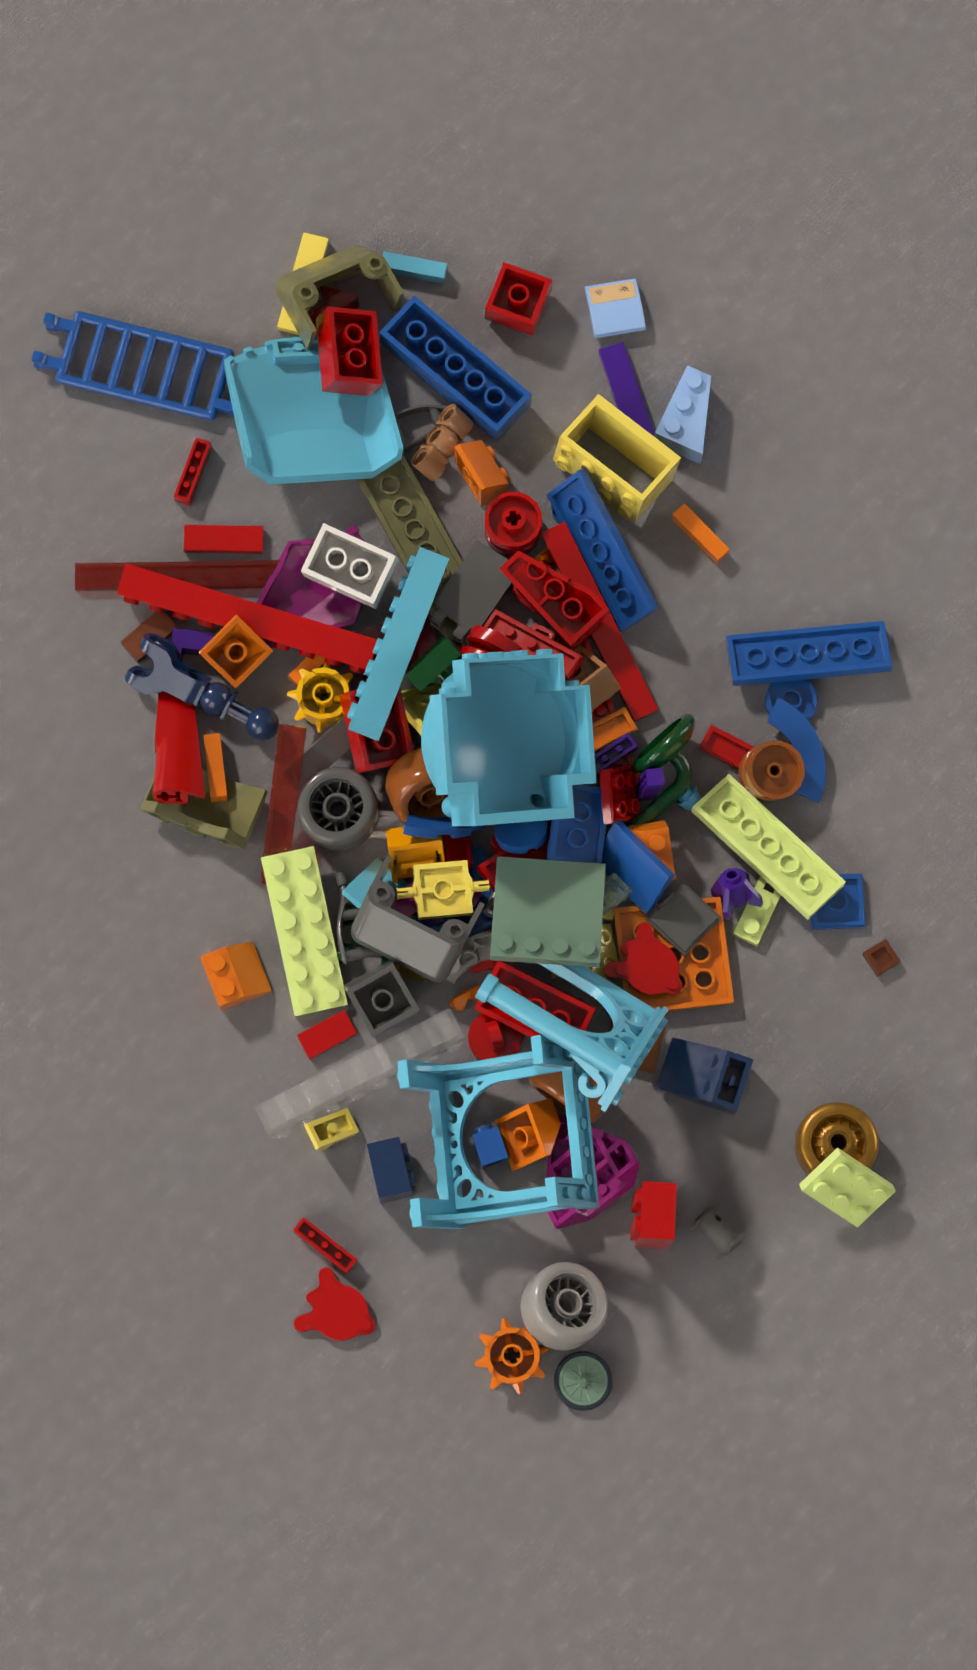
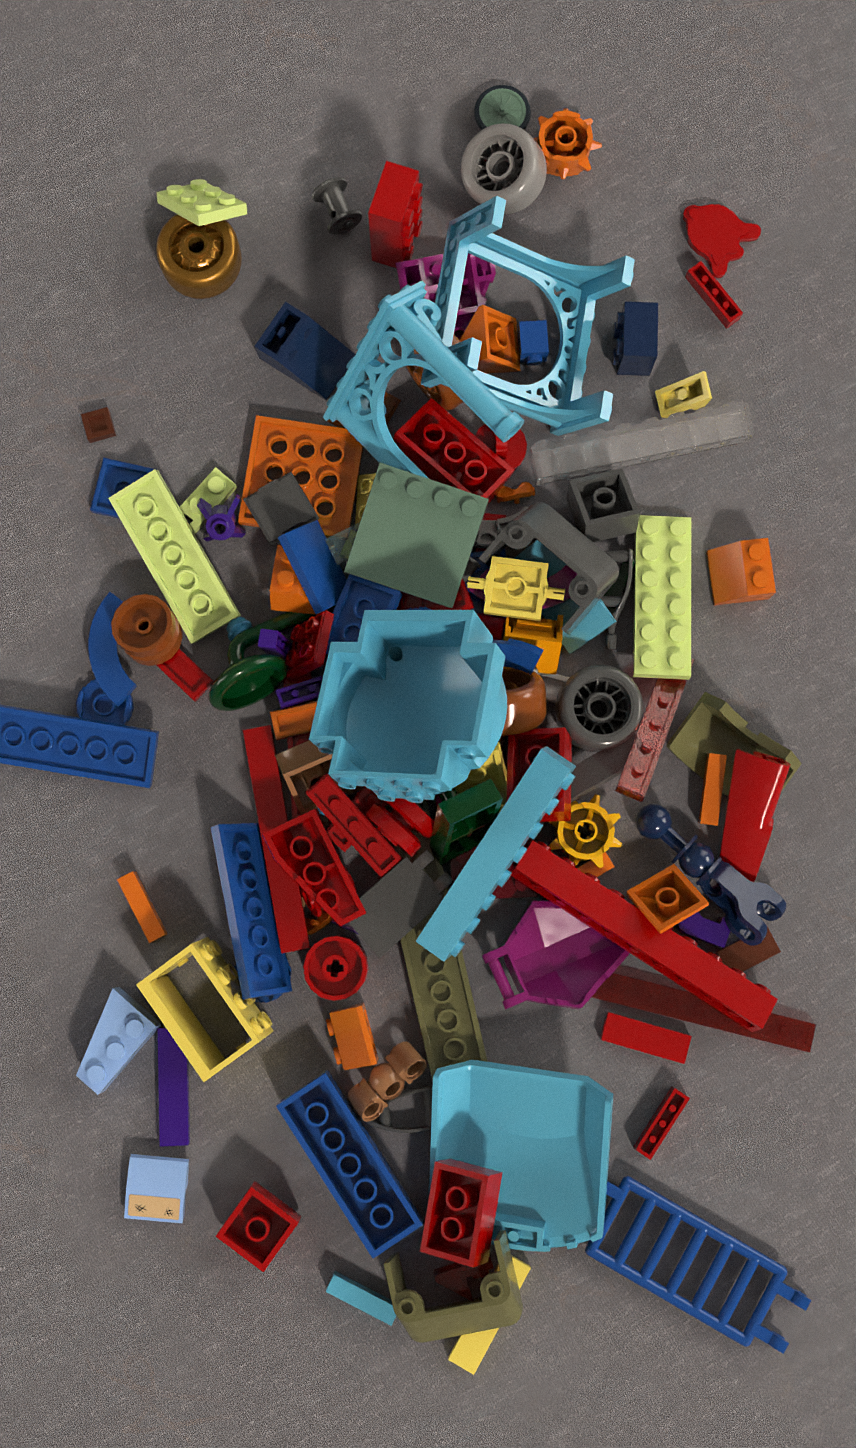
camera: 165 degrees left, 5 degrees up
(327, 1034) = (663, 493): red tile -> none
(349, 566) = (525, 958): white brick -> none
(647, 966) = (330, 469): red tile -> none

